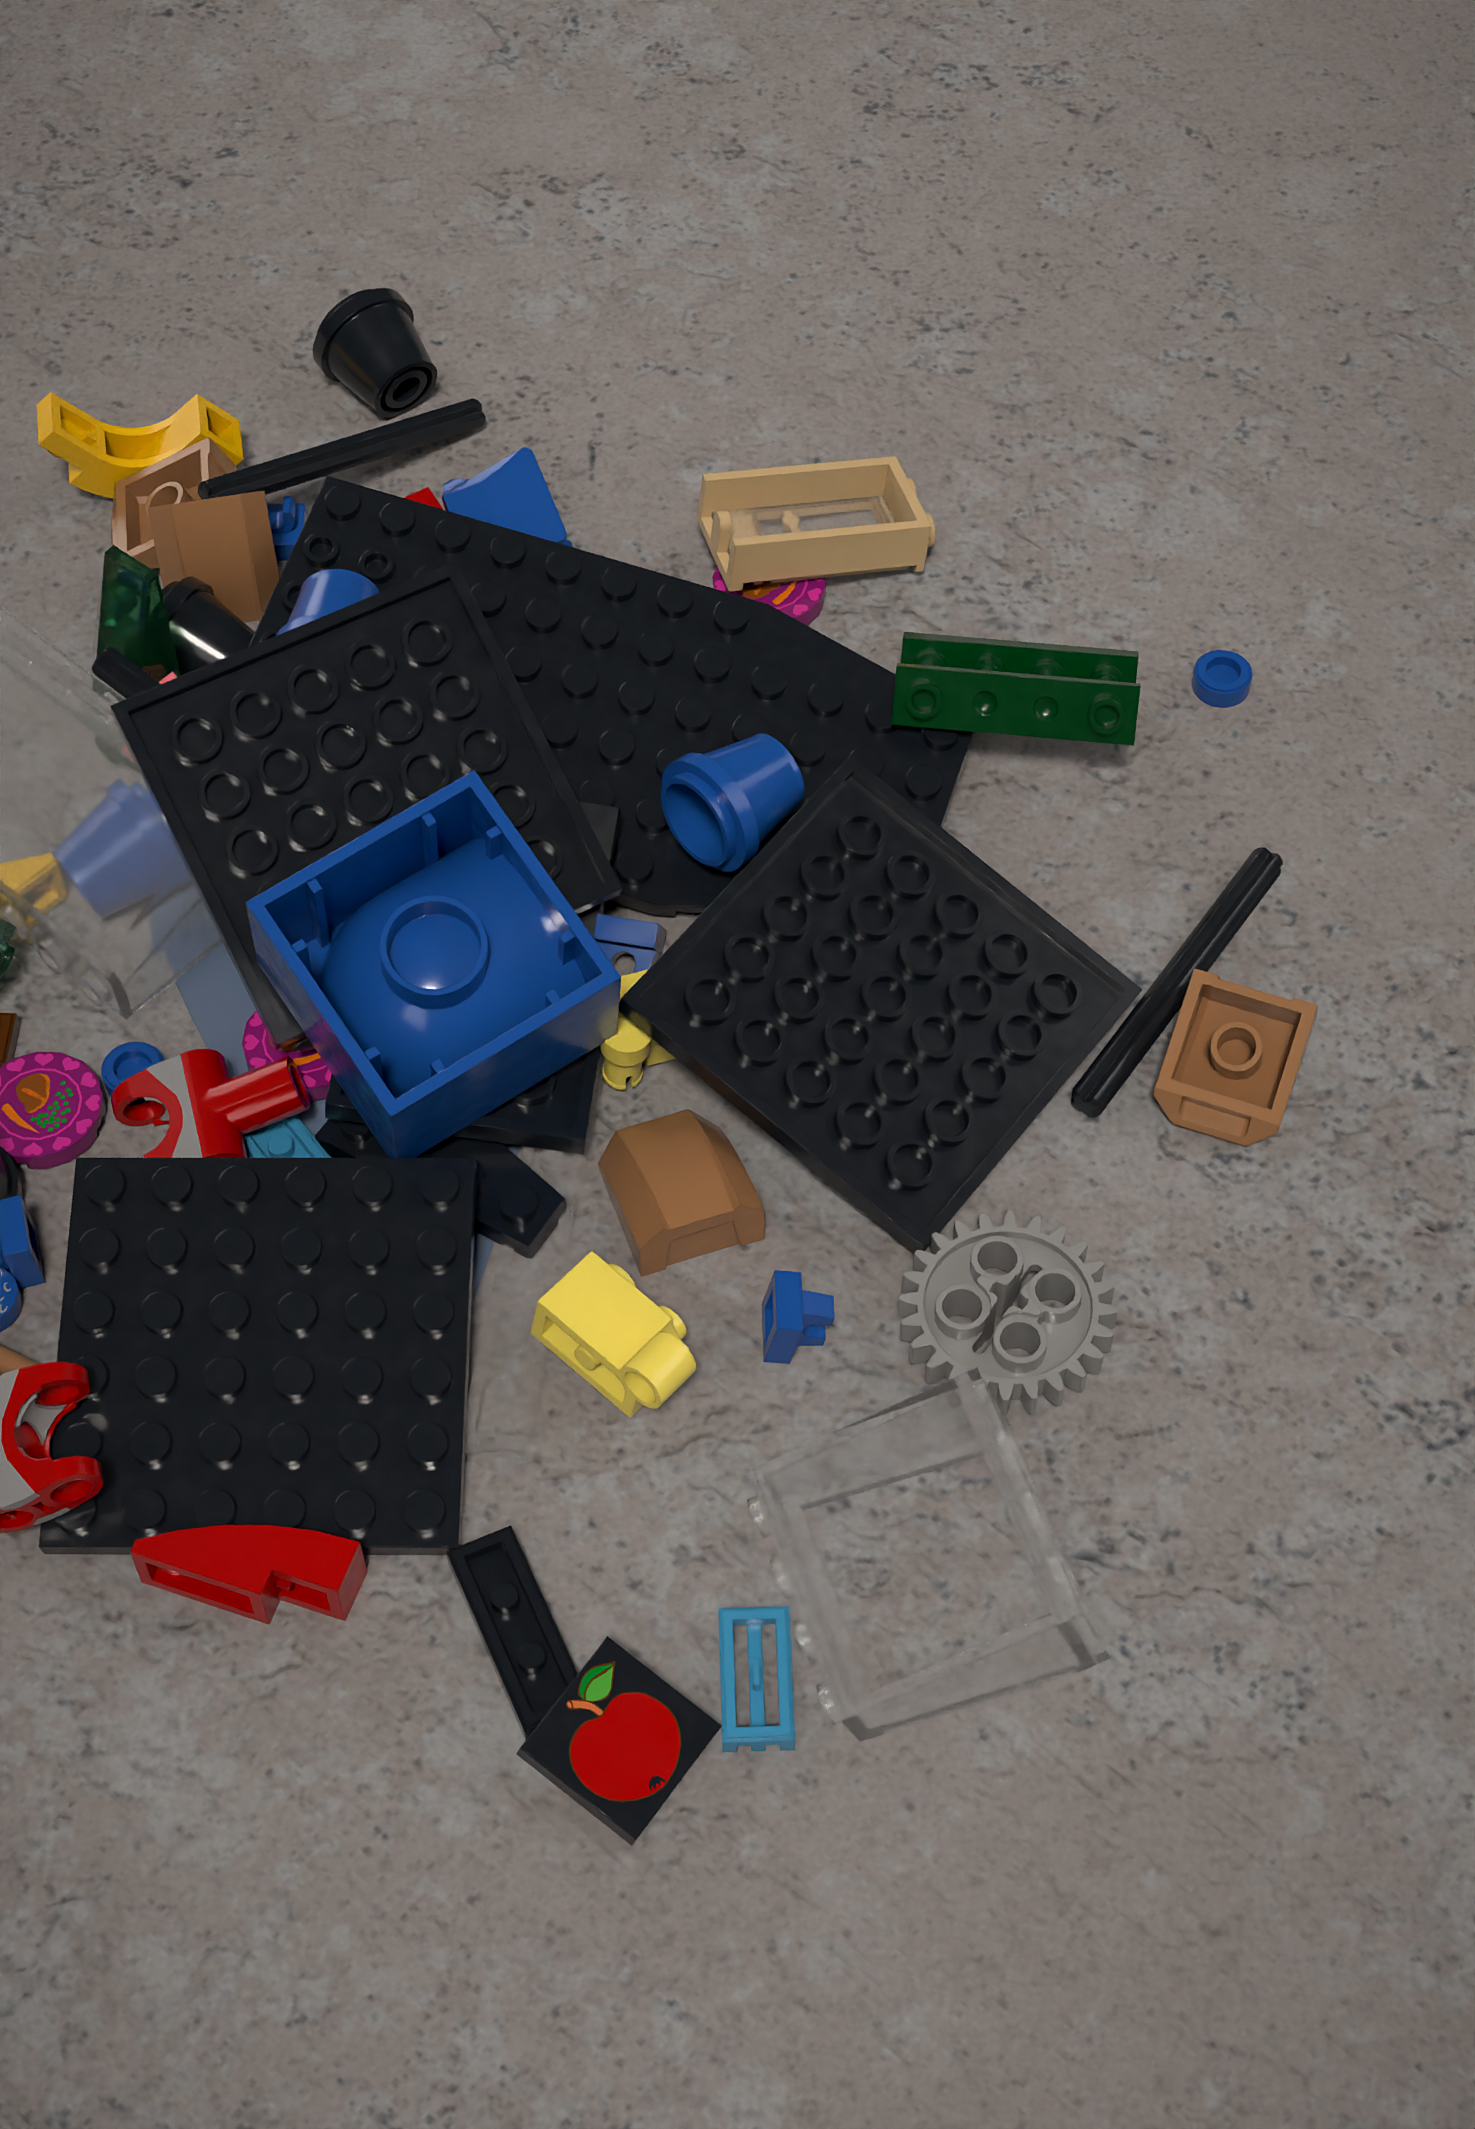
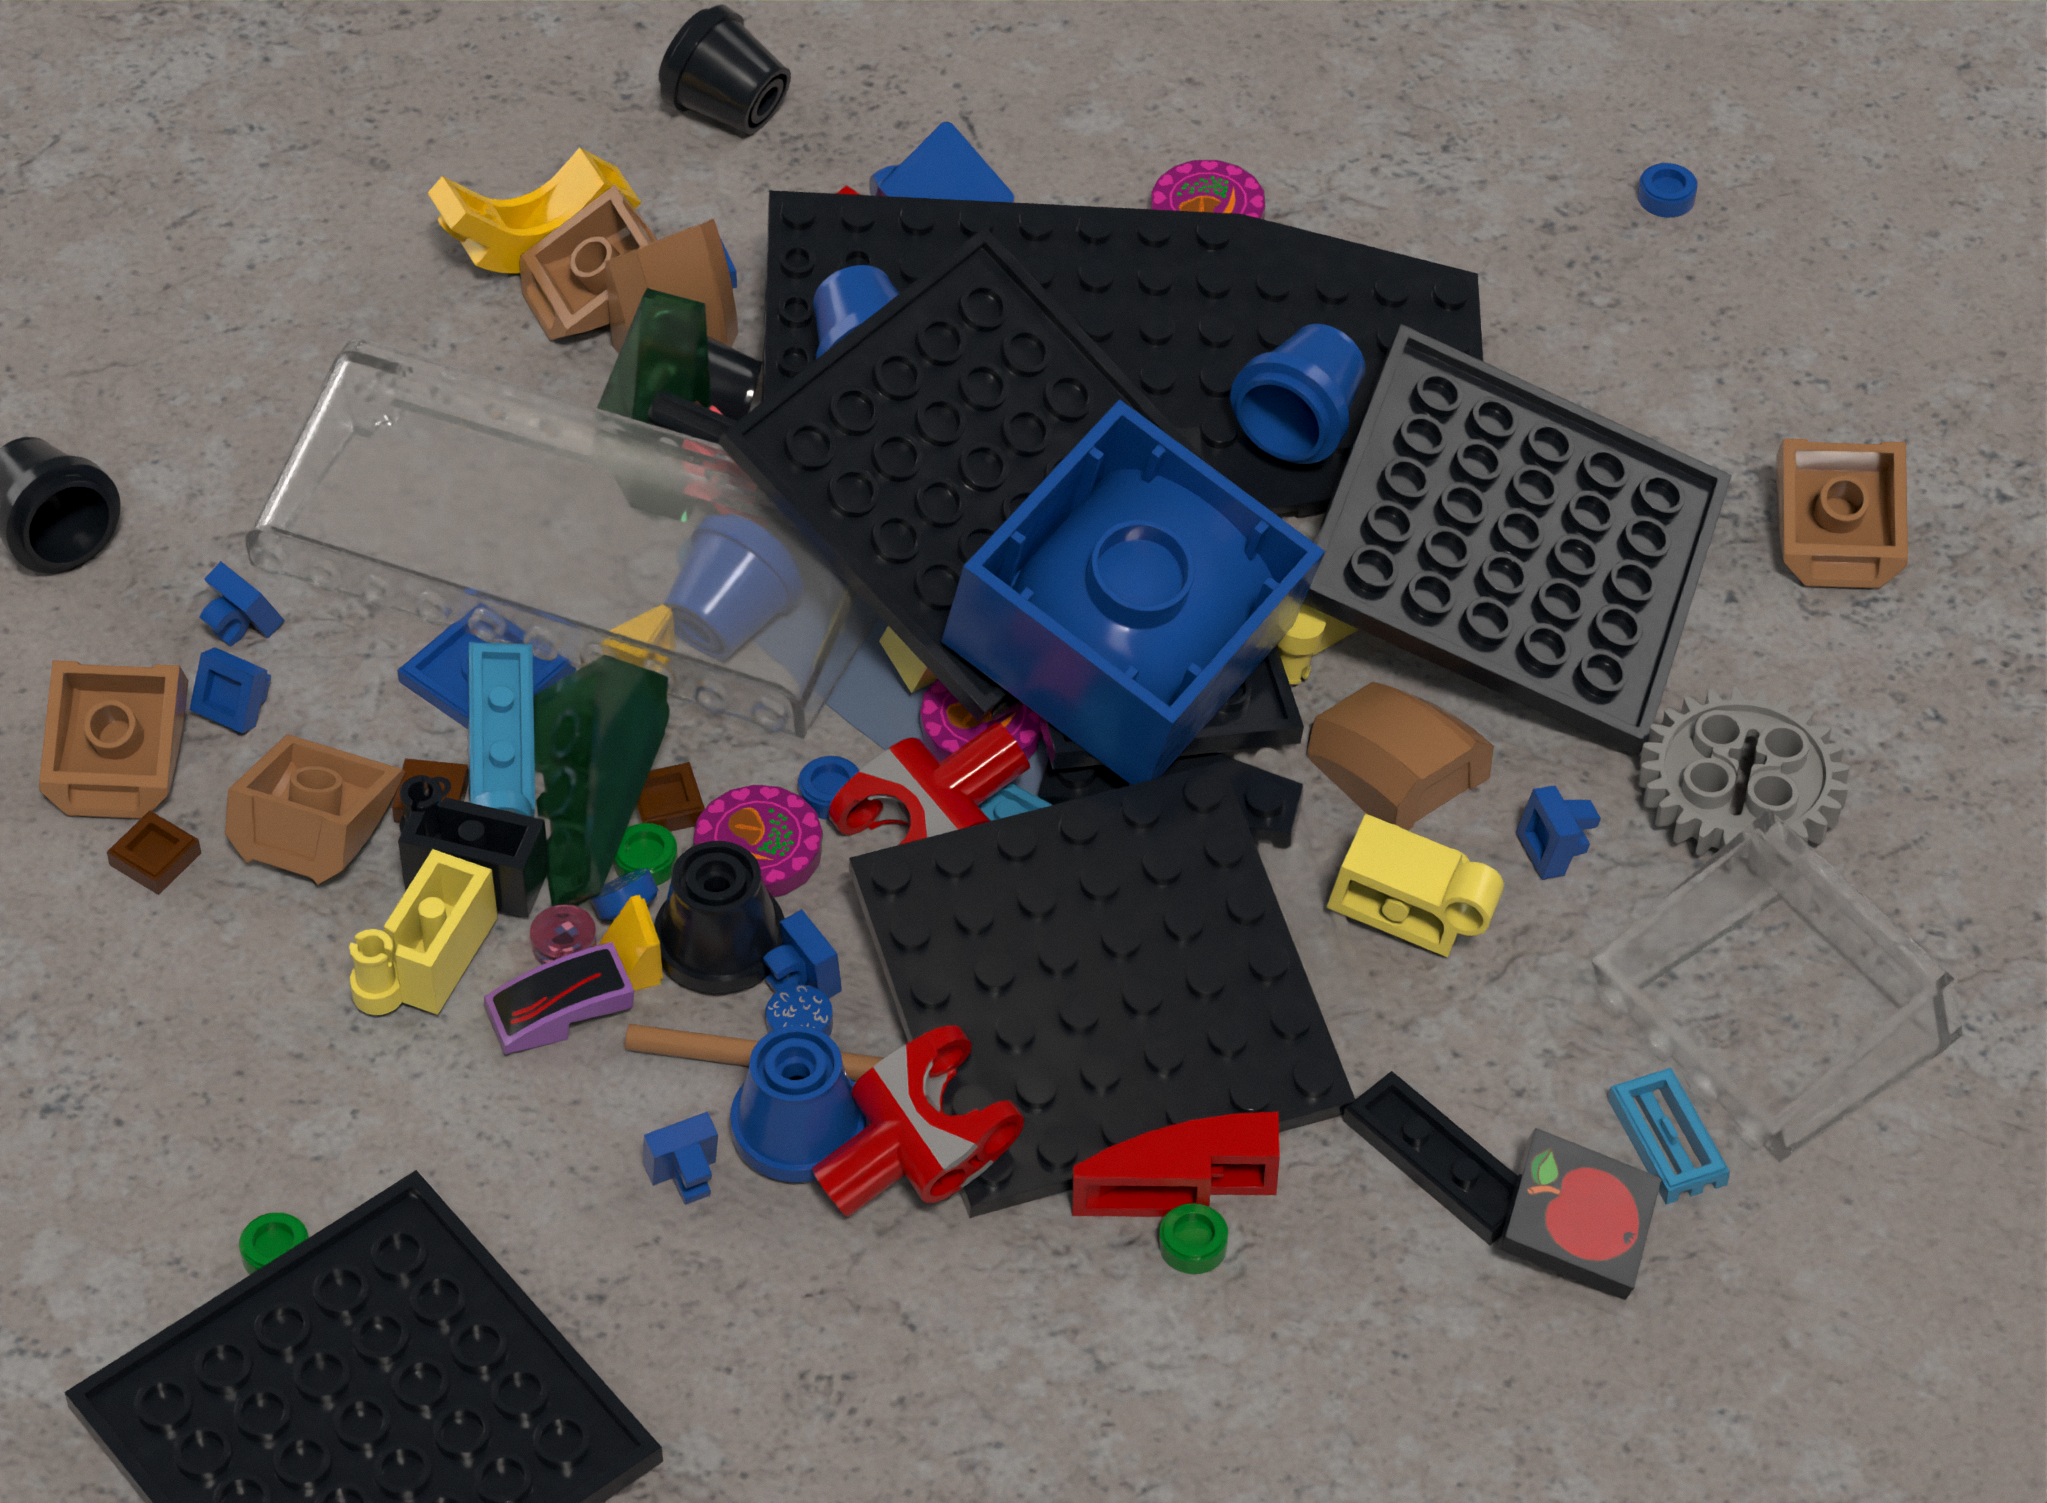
camera: 20 degrees left, 5 degrees down
(237, 1644) = (1193, 1238): none -> green tile
(348, 451) = (750, 170): black axle -> none
(813, 521) = (1231, 133): tan door -> none
(1017, 688) = (1505, 236): dark green fence -> none
(1168, 990) = (1754, 463): black axle -> none

